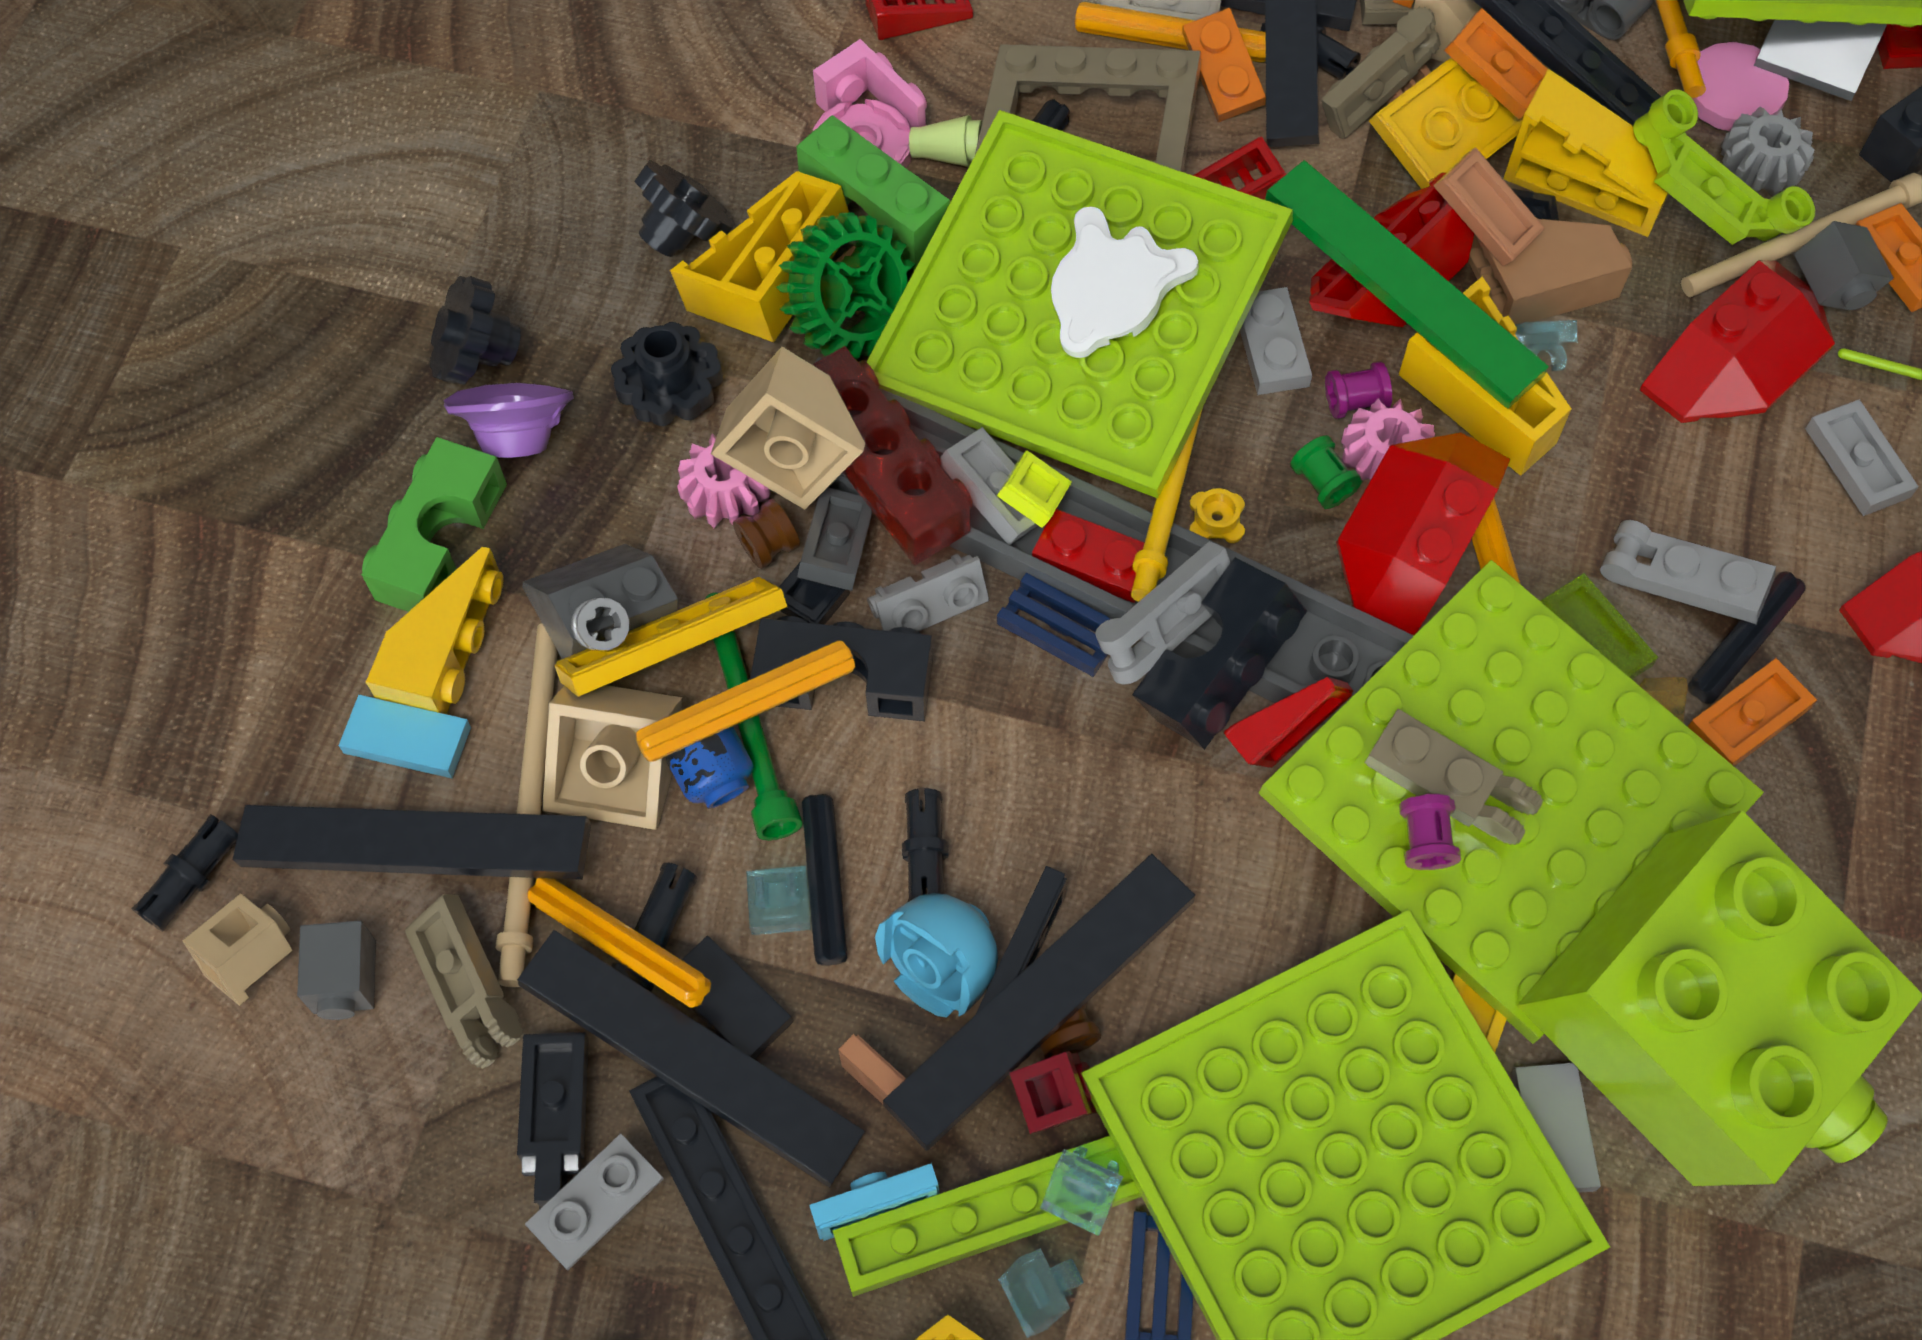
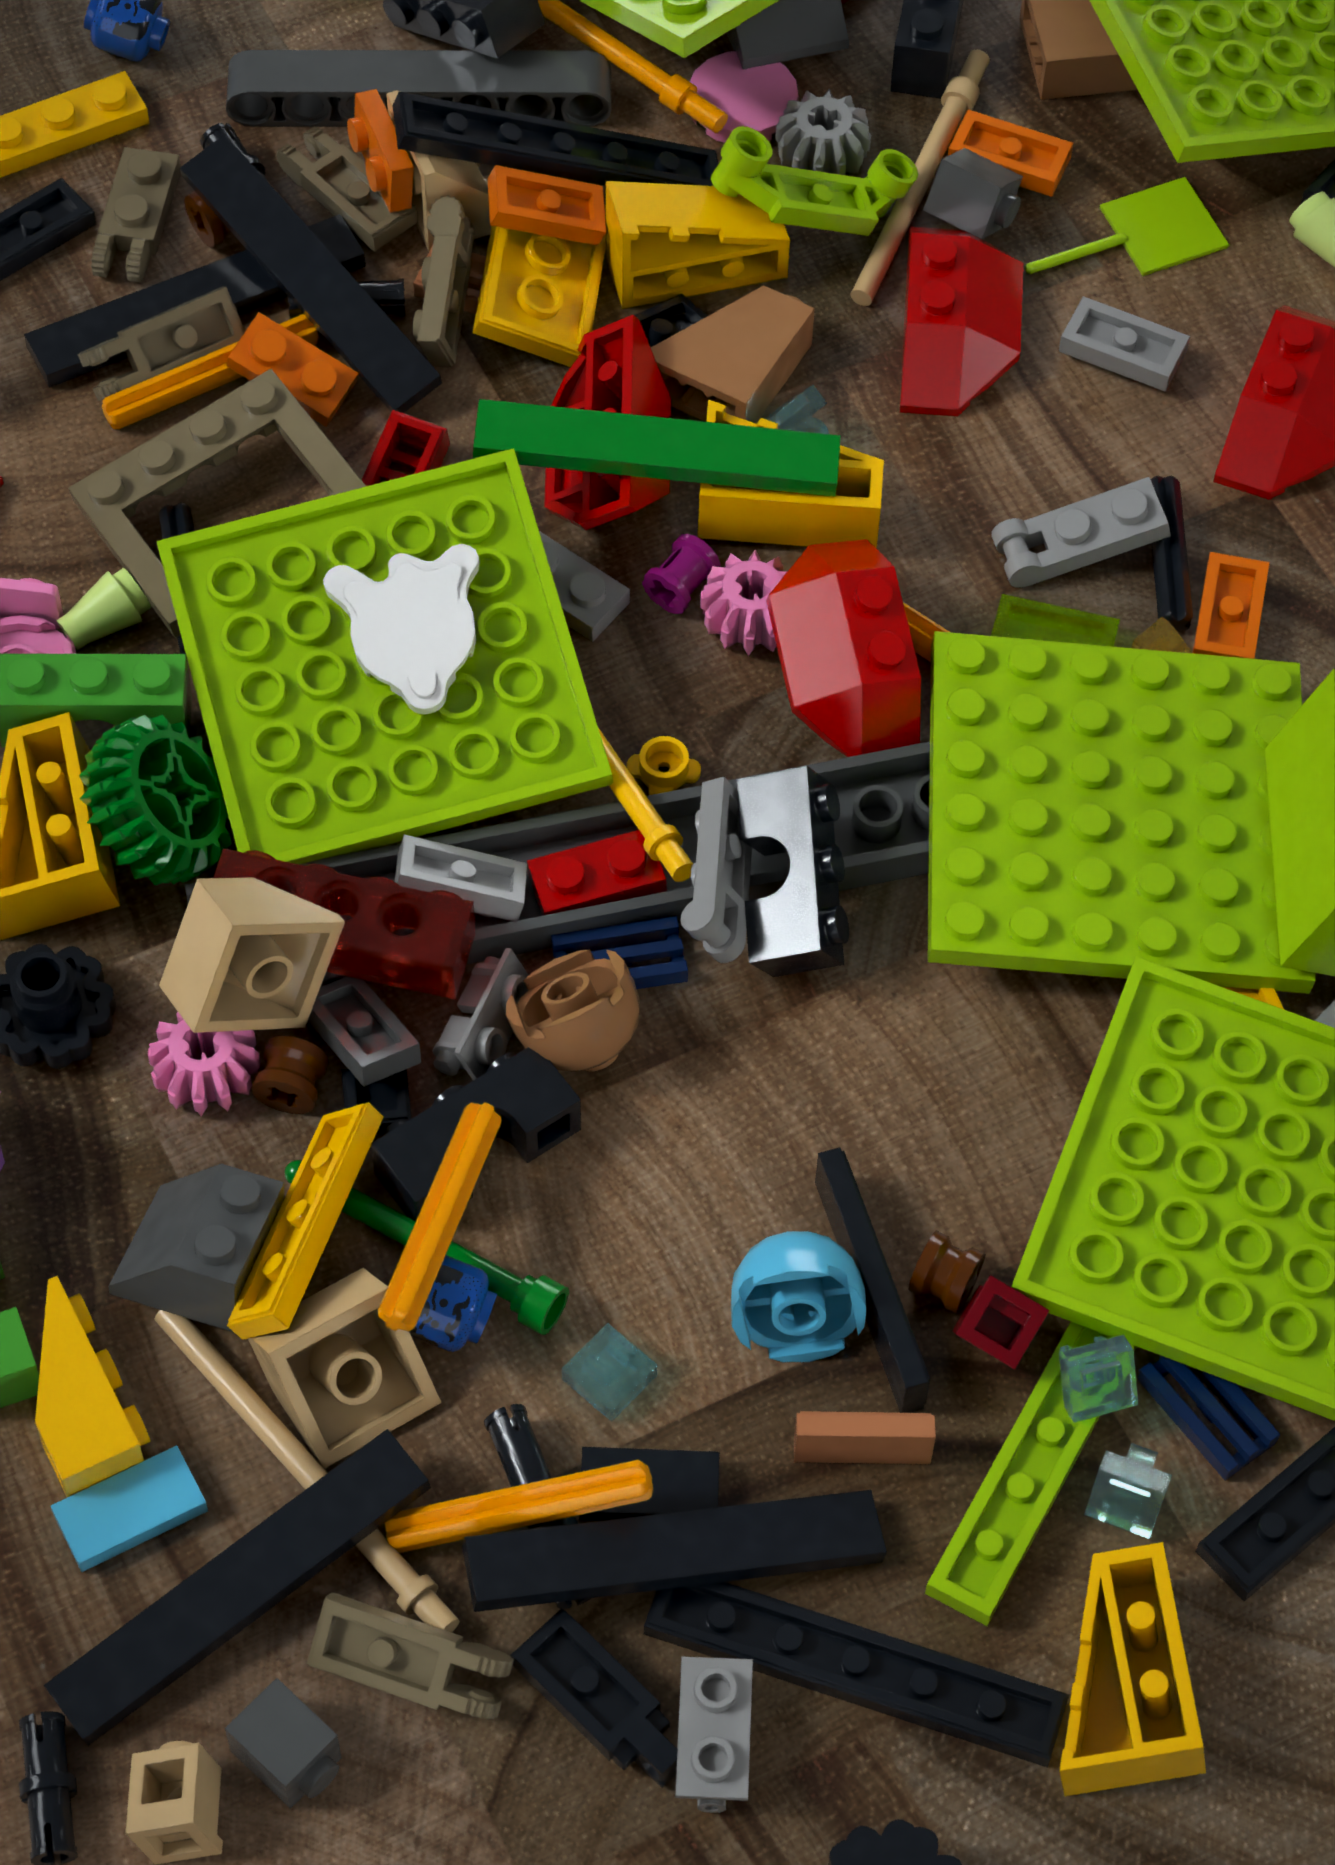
camera: 45 degrees left, 5 degrees down
(613, 636) = (233, 1242): light grey bush -> none
(824, 880) = (648, 1333): black axle -> none
(873, 1196) = (932, 1532): medium azure plate -> none
(924, 843) = (690, 1227): black pin -> none
(981, 637) = (577, 1011): none -> medium nougat cylinder
(1034, 488) = (498, 854): neon yellow tile -> none
(1038, 1002) = (923, 1262): black tile -> none
(1280, 727) = (890, 899): red slope -> none
(1326, 472) = (721, 662): green bush -> none
(1429, 832) = (1101, 879): magenta bush -> none
(1436, 765) = (1073, 826): dark tan hinge -> none
(1489, 207) = (661, 335): nougat tile -> none

